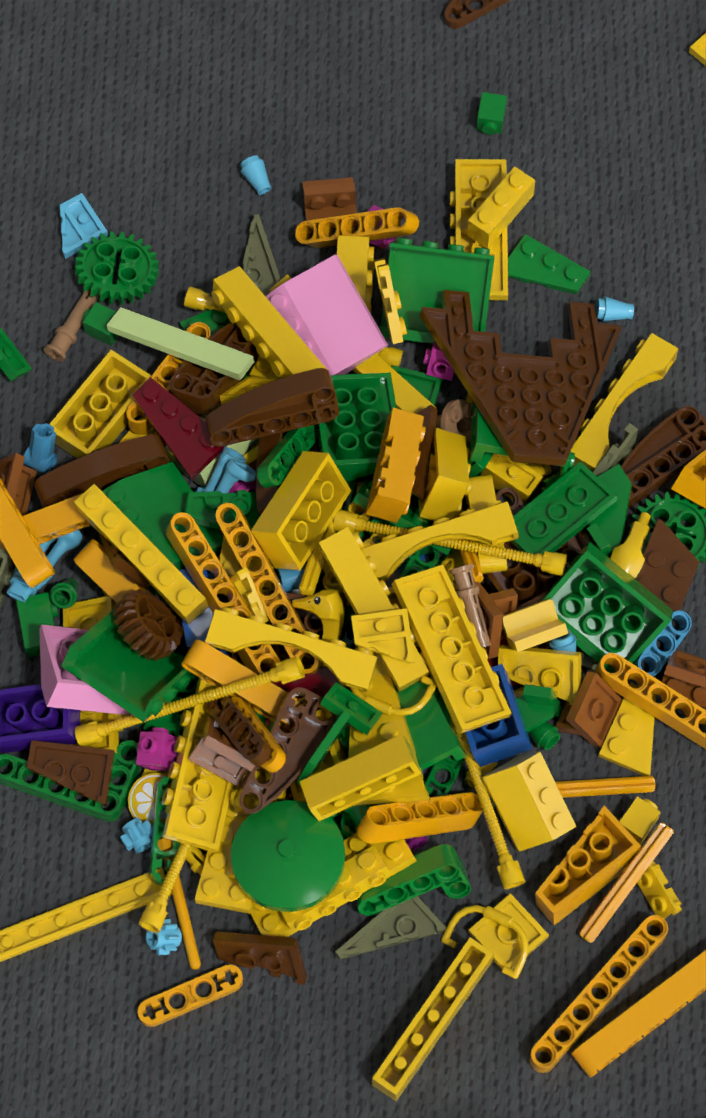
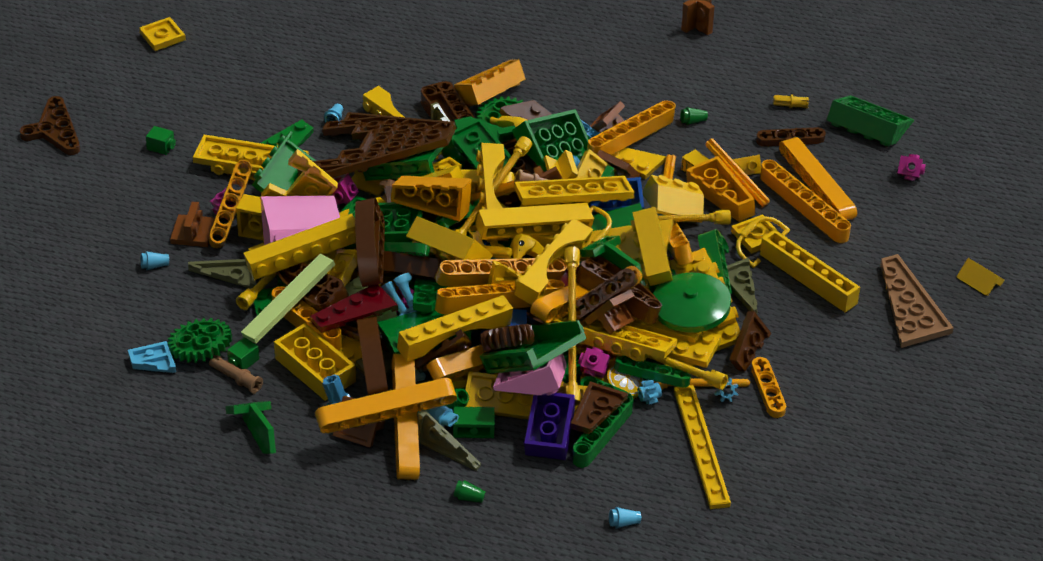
camera: 80 degrees left, 25 degrees down
(385, 634) = (560, 209): yellow wing -> none
(501, 207) = (245, 135): yellow brick -> none

